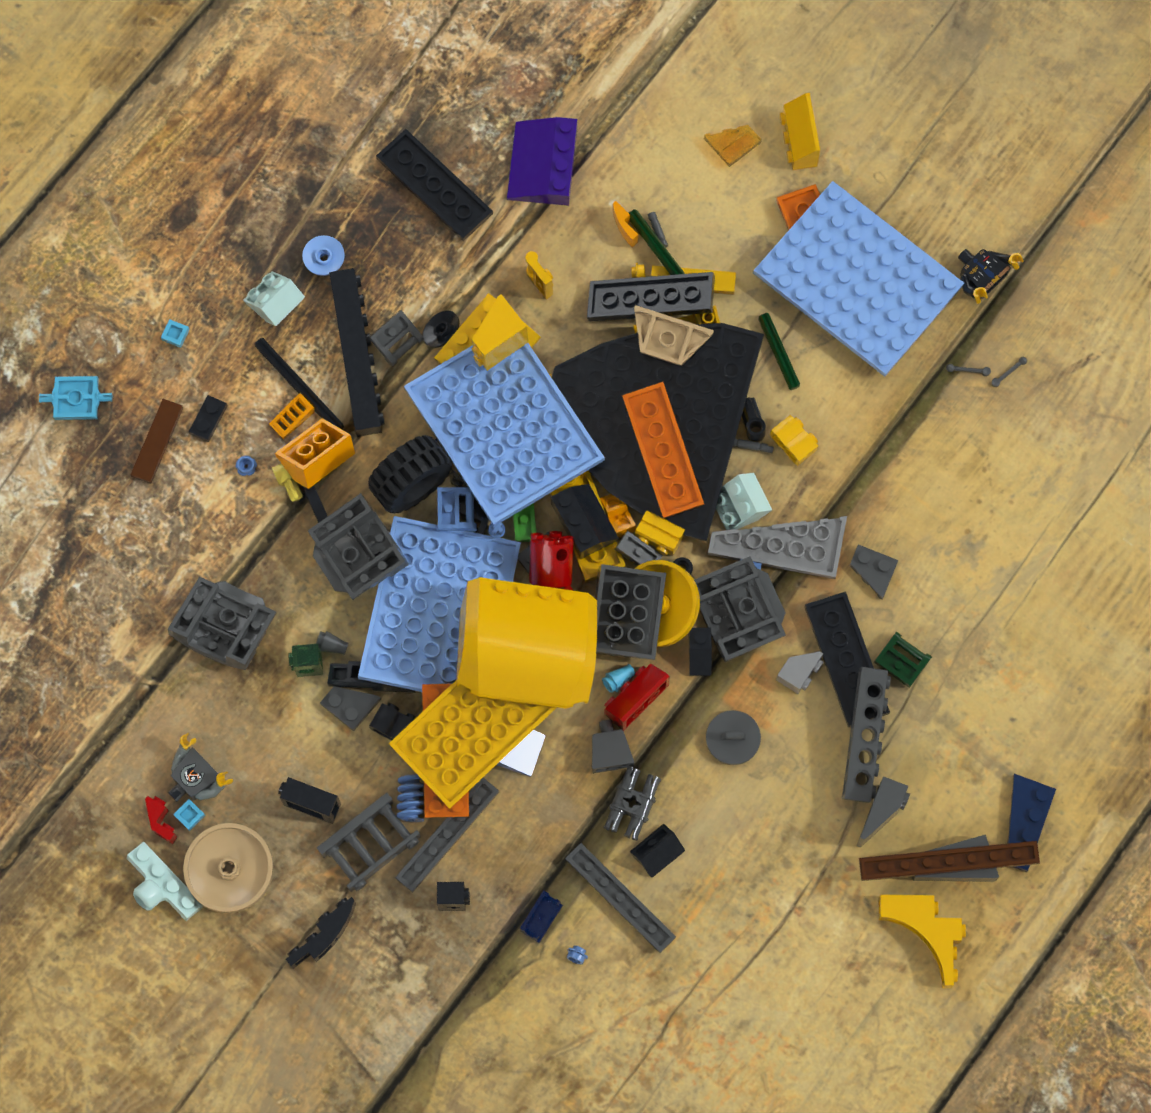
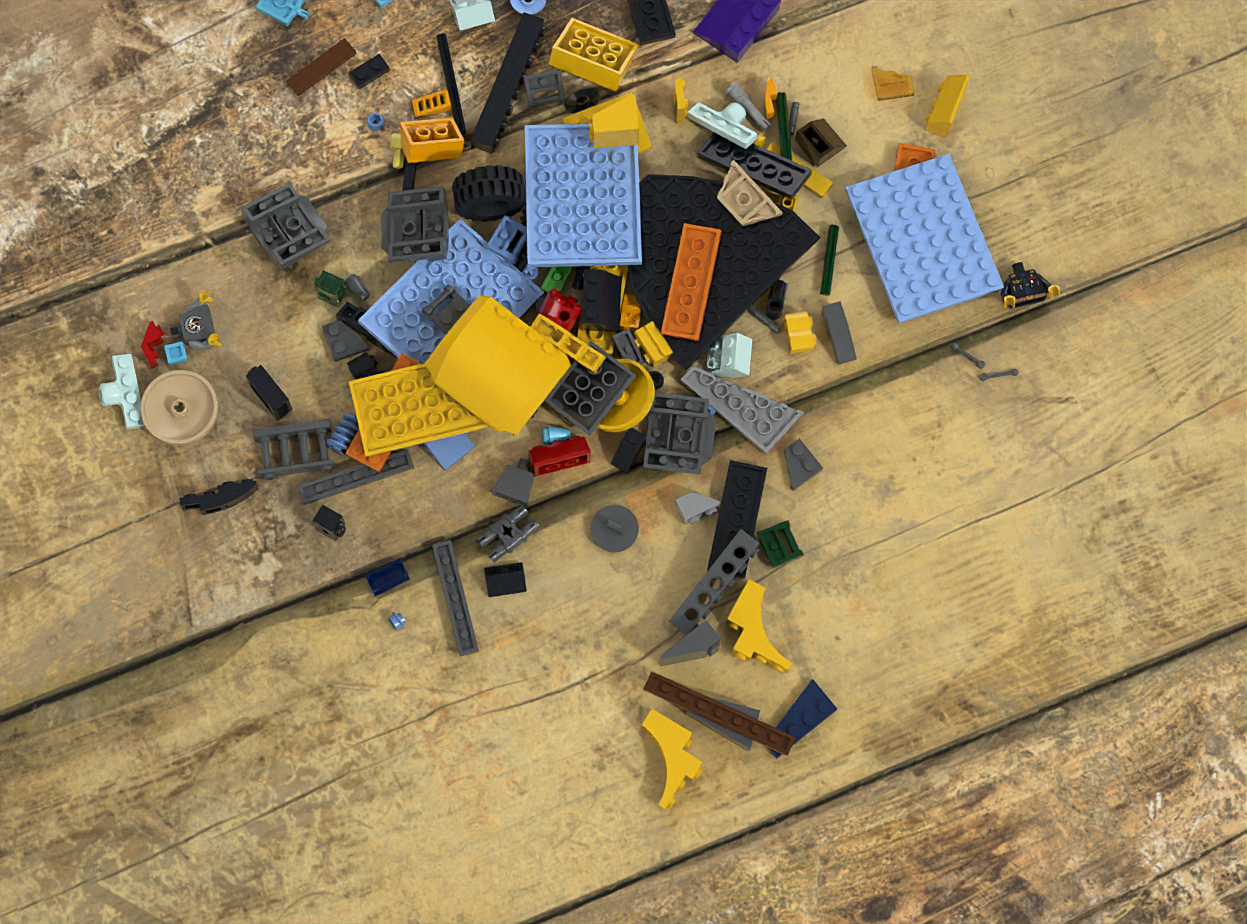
camera: 25 degrees right, 0 degrees up
(423, 276) = (593, 54): none -> yellow slope
(445, 617) = (451, 313): none -> dark grey plate
(547, 509) = (579, 277): none -> black pin
(582, 580) = (568, 343): none -> yellow slope
(596, 272) = (725, 123): none -> light aqua plate
(598, 241) = (743, 99): none -> light grey pin
(698, 239) = (819, 141): none -> dark brown slope
(832, 418) = (838, 332): none -> dark grey slope
(935, 769) = (753, 639): none -> yellow arch

